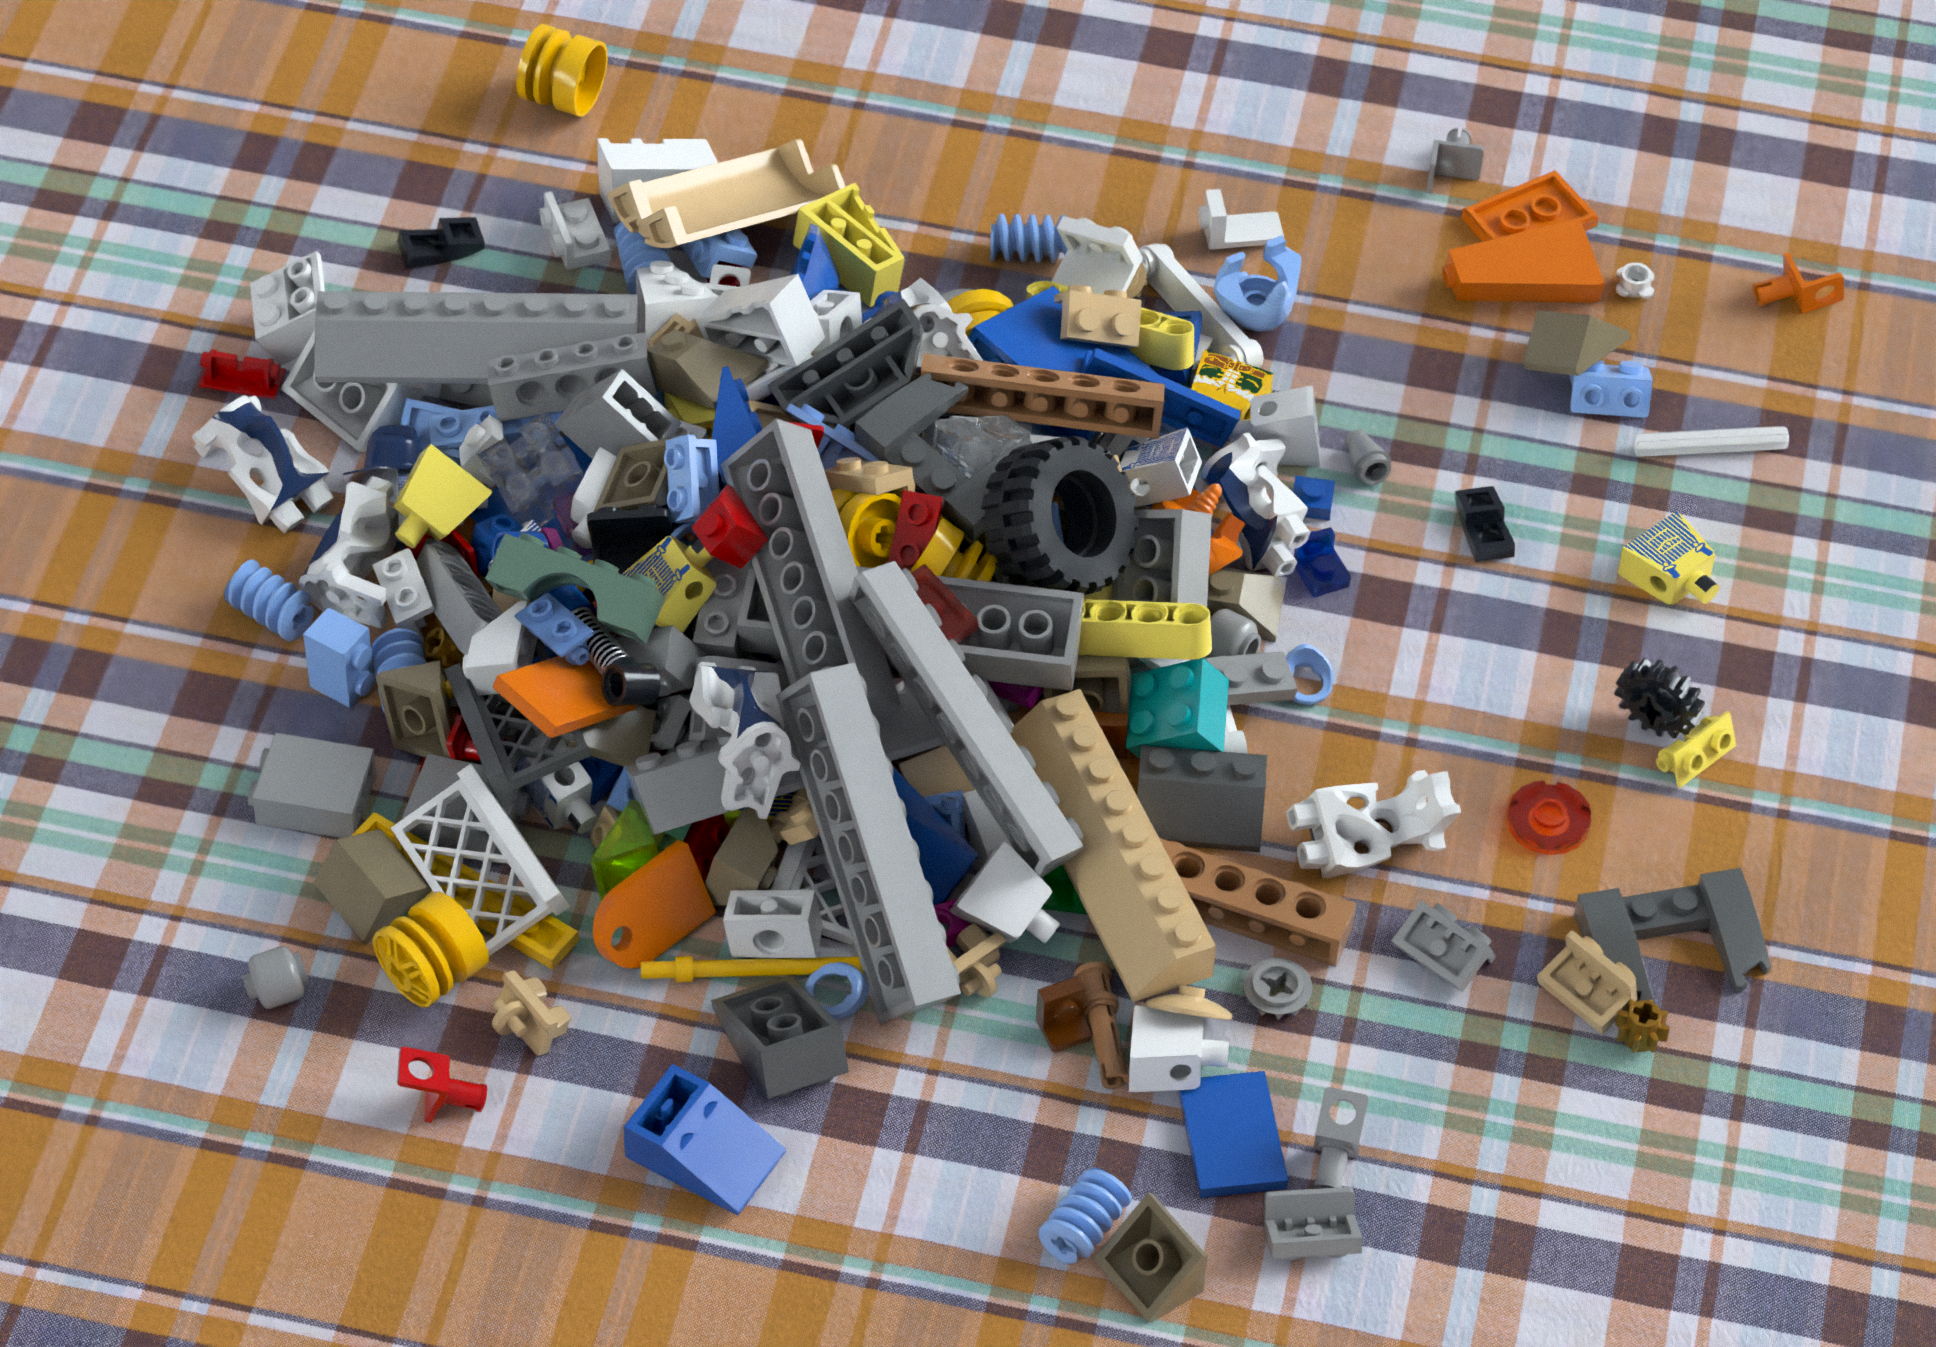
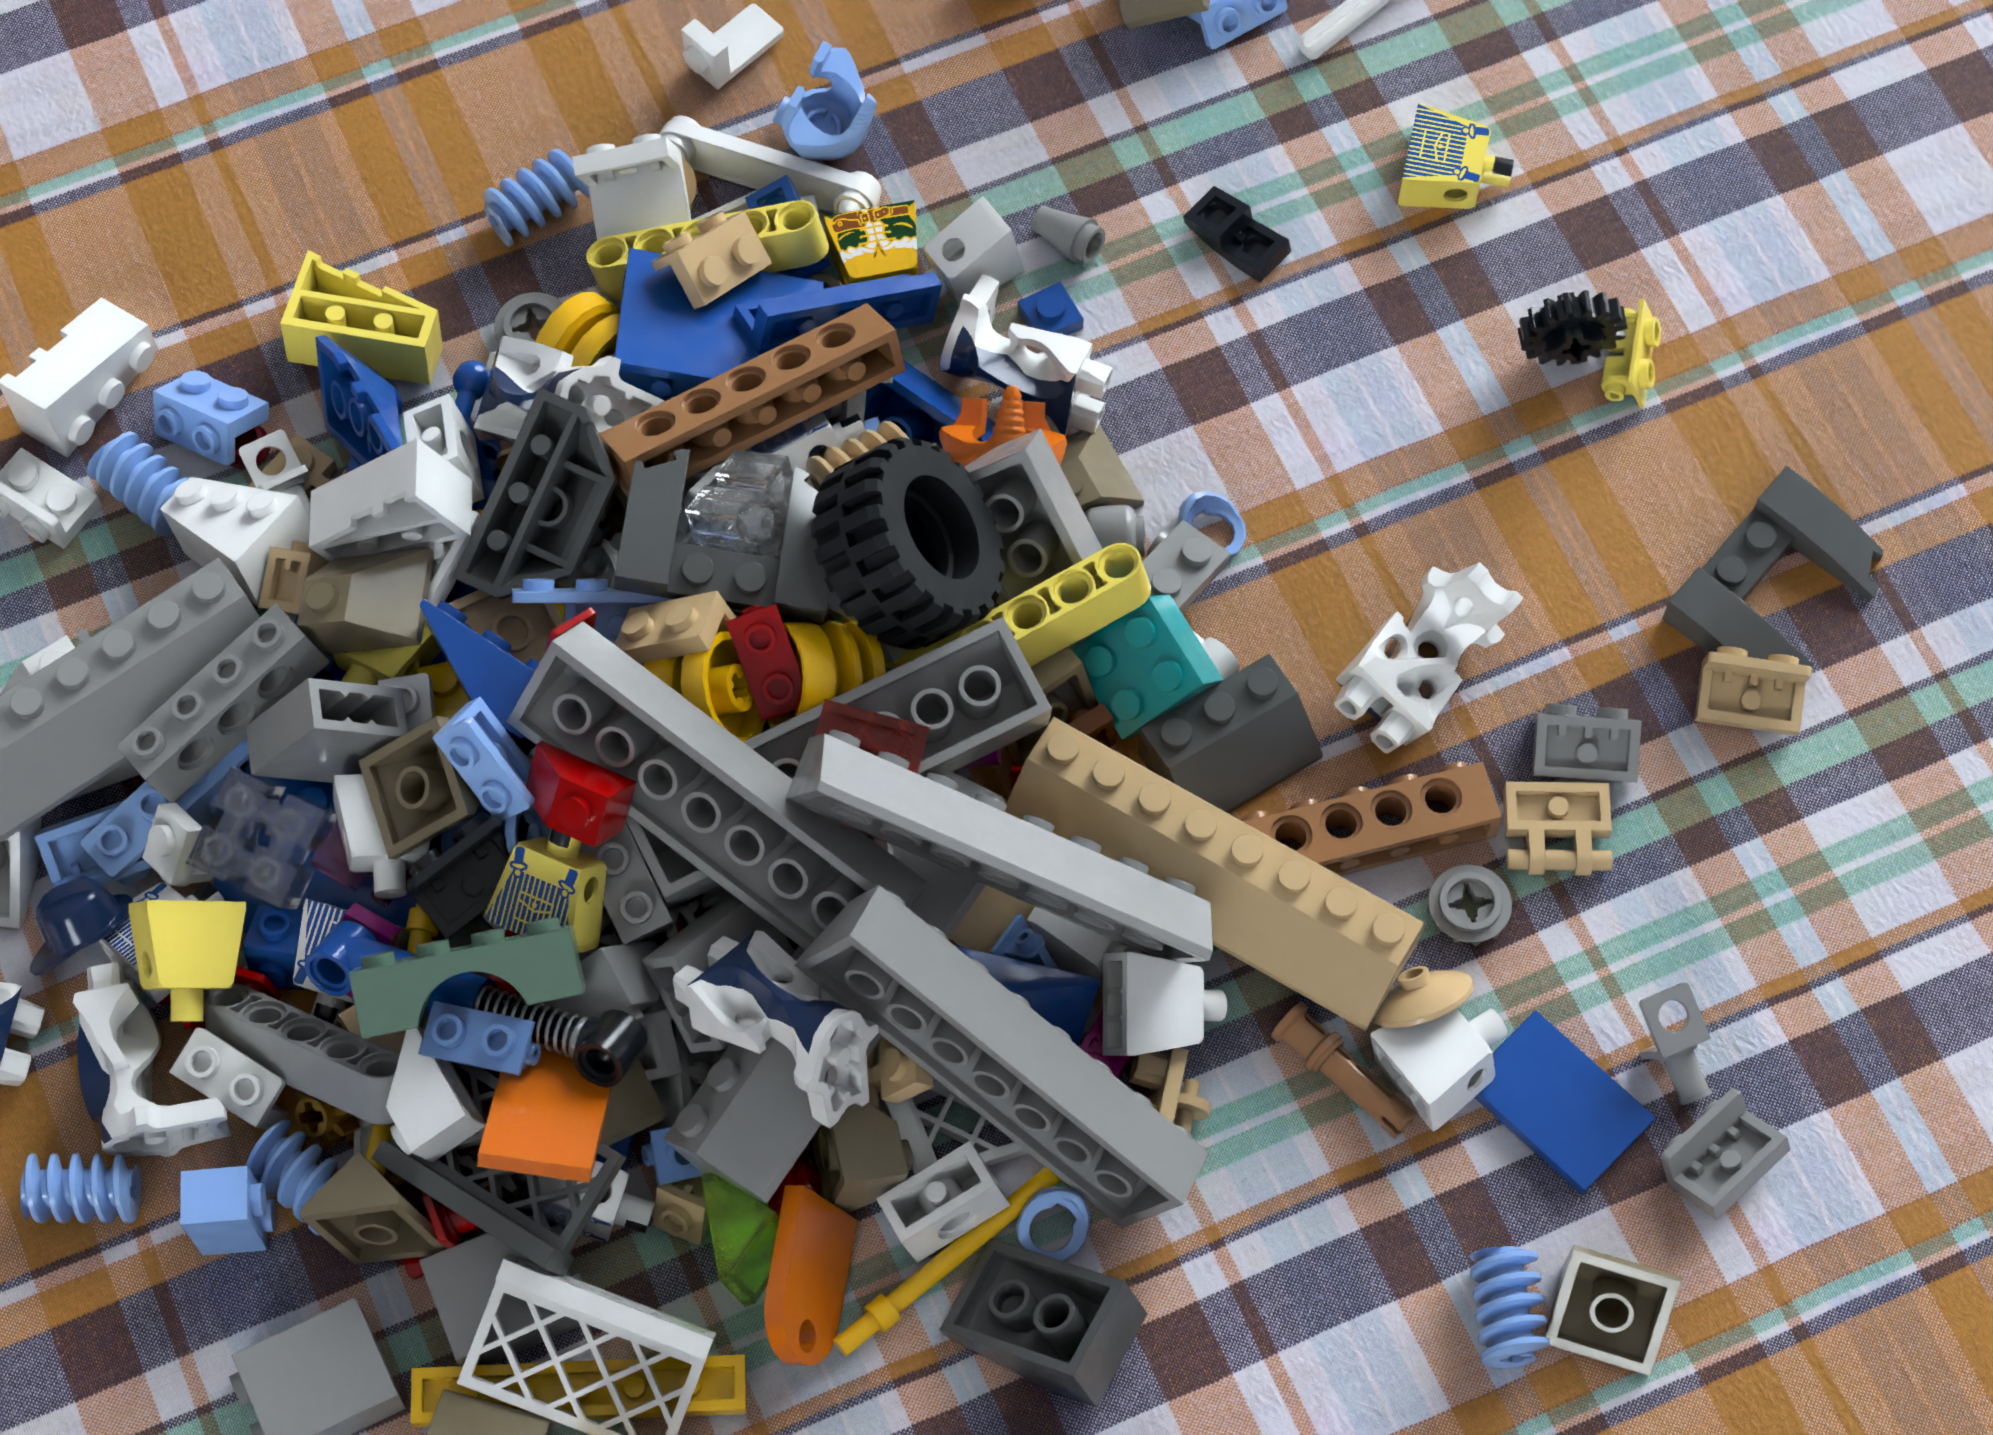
camera: 35 degrees left, 15 degrees up
(723, 196) = (189, 360): tan cylinder -> none
(1061, 1014) = (1304, 1096): reddish brown bracket -> none
(1162, 468) = (927, 398): white torso -> none
(1320, 564) = (1130, 390): clear blue bracket -> none
(1387, 971) = (1557, 811): none -> tan plate
(1549, 817) = (1558, 527): clear red tile -> none
(1642, 1026) = (1833, 703): pearl gold gear -> none

